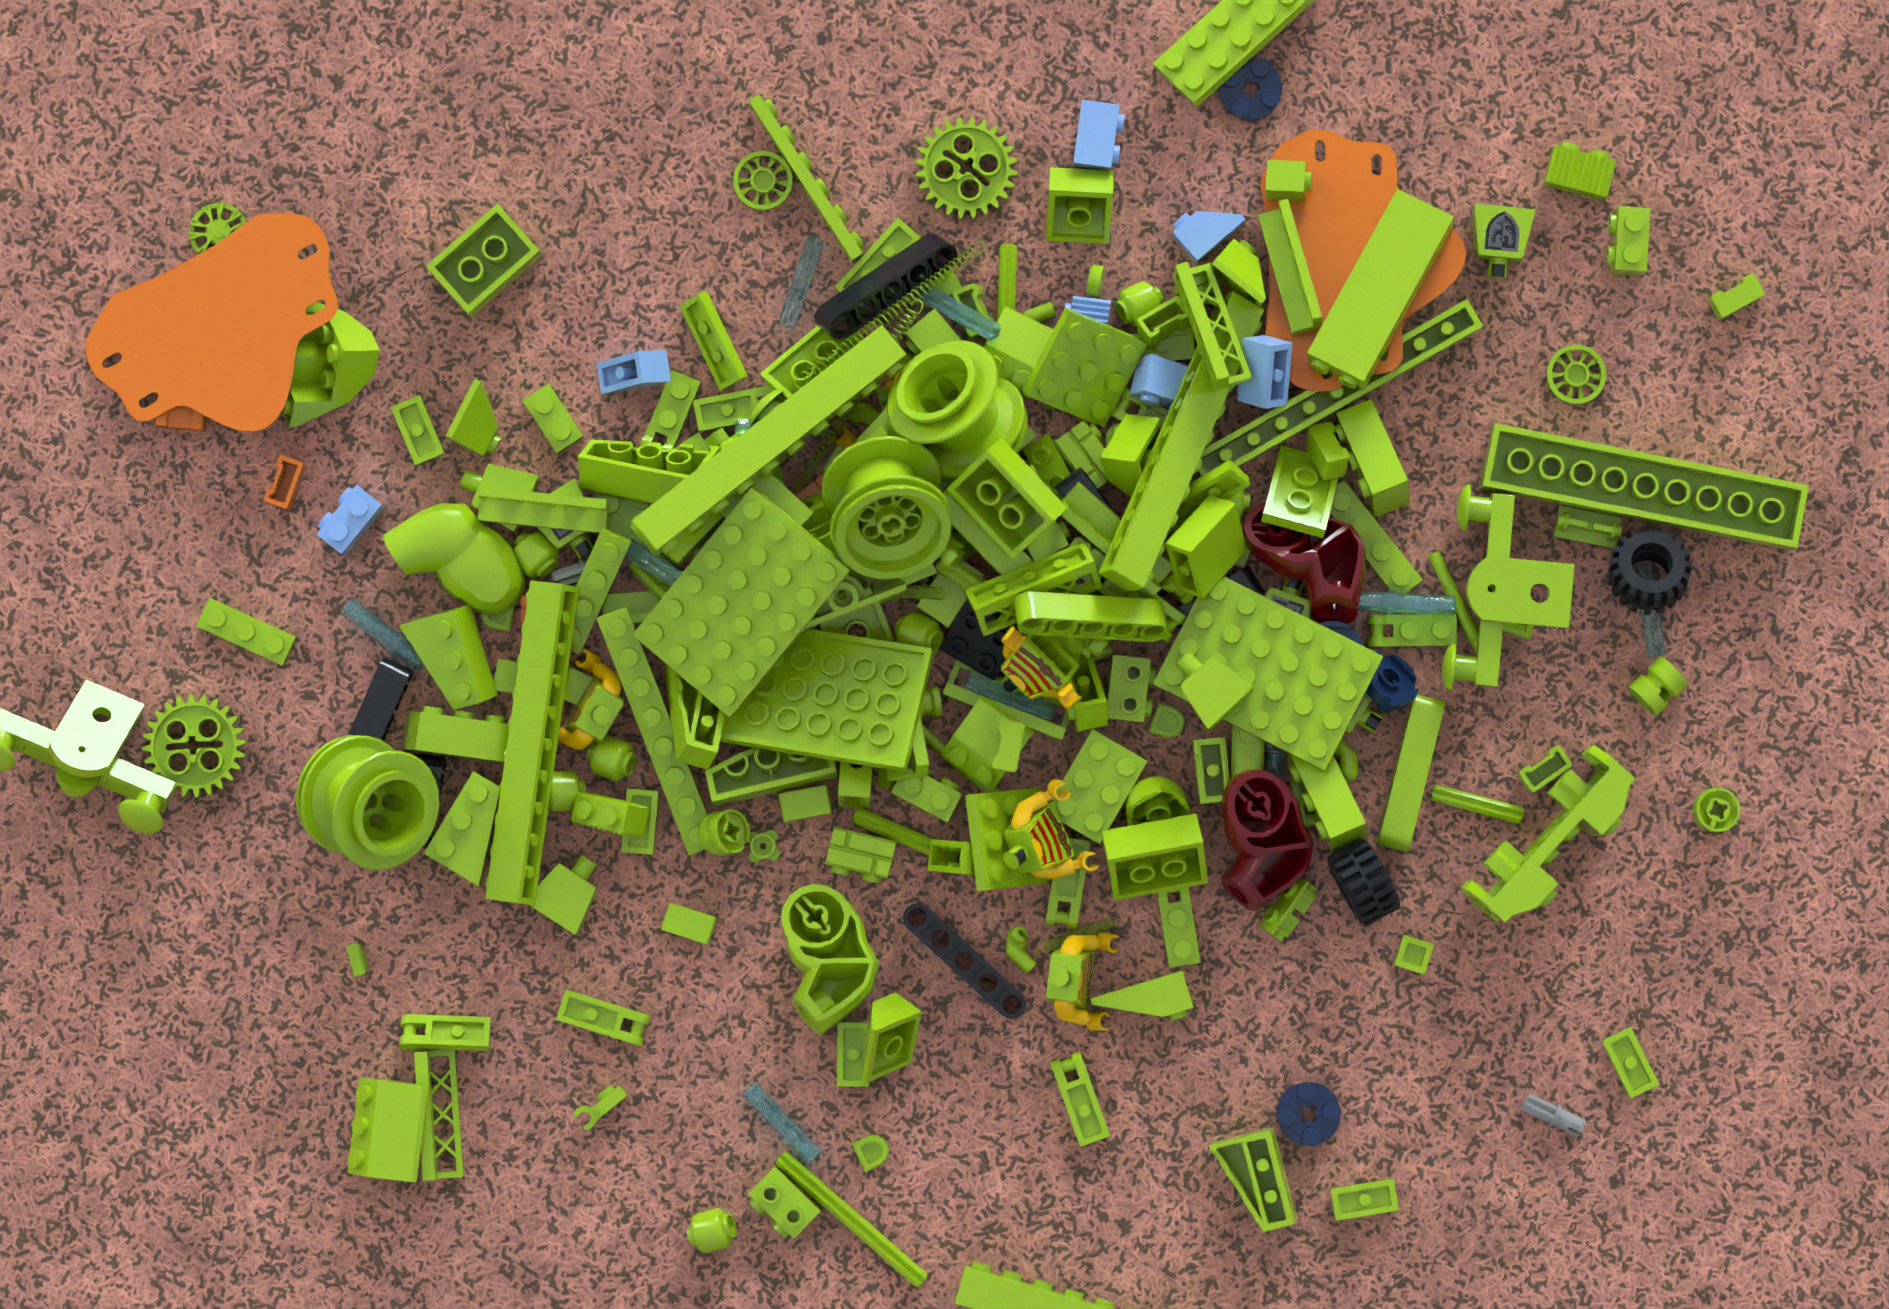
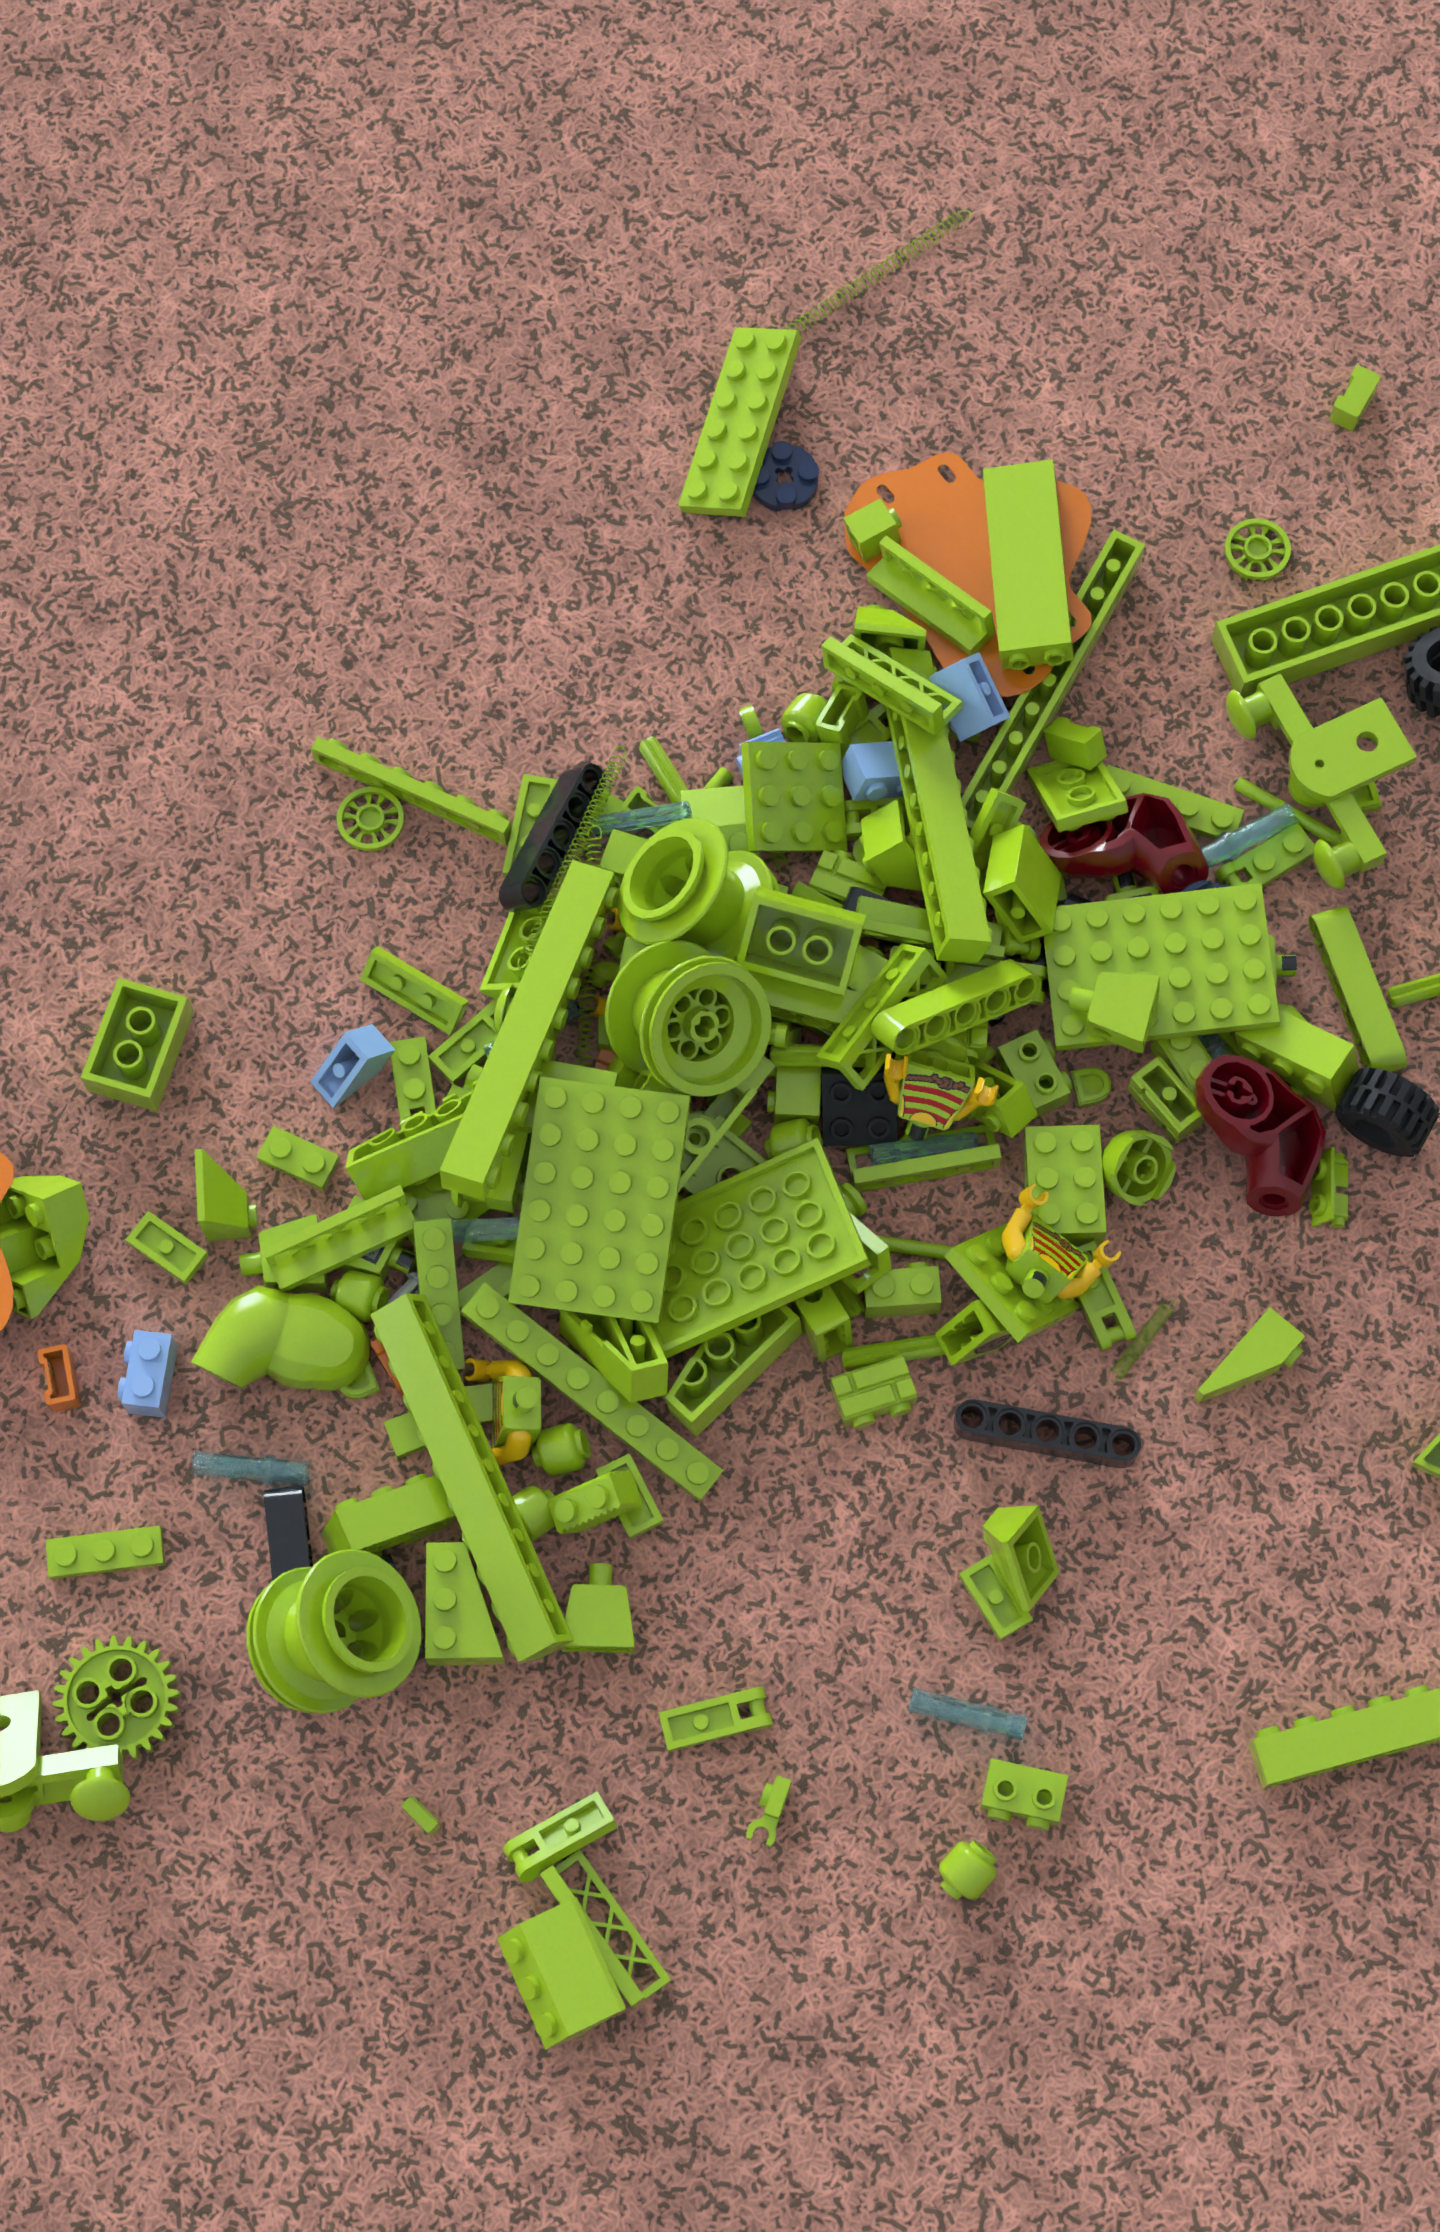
camera: 30 degrees left, 15 degrees down
(453, 655) = (334, 1441): lime wedge -> none
(689, 923) = (743, 1567): lime piece -> none
(713, 832) = (722, 1452): lime wheel -> none
(770, 852) = (772, 1435): lime plate -> none
(801, 281) = (466, 889): clear light blue axle -> none
(805, 803) = (786, 1377): lime piece -> none
(831, 951) = (907, 1502): lime piece -> none
(851, 1219) = (1106, 1769): lime axle -> none
(871, 1151) = (1078, 1687): lime tile -> none
(922, 592) = (785, 1090): lime piece -> none
(978, 741) = (930, 1202): lime slope -> none
(984, 145) = (557, 723): lime gear -> none
(1009, 746) = (956, 1183): lime piece -> none
(1016, 948) = (1089, 1392): lime arm -> none
(1071, 978) = (1166, 1384): torso -> none
(1079, 205) = (692, 665): lime slope -> none
(1080, 1100) = (1253, 1502): lime plate -> none
(1097, 135) = (667, 593): light blue brick -> none
(1155, 857) = (1168, 1212): lime brick -> none
(1178, 929) = (1230, 1269): lime plate -> none
(1204, 232) = (825, 617): light blue slope -> none
(1373, 458) = (1130, 726): lime wedge -> none
(1401, 689) = (1287, 917): dark blue plate -> none
(1500, 235) = (1103, 467): lime torso -> none
(1579, 171) = (1137, 374): lime brick -> none
(1587, 527) = (1364, 674): lime hinge -> none
(1629, 241) = (1225, 404): lime brick -> none

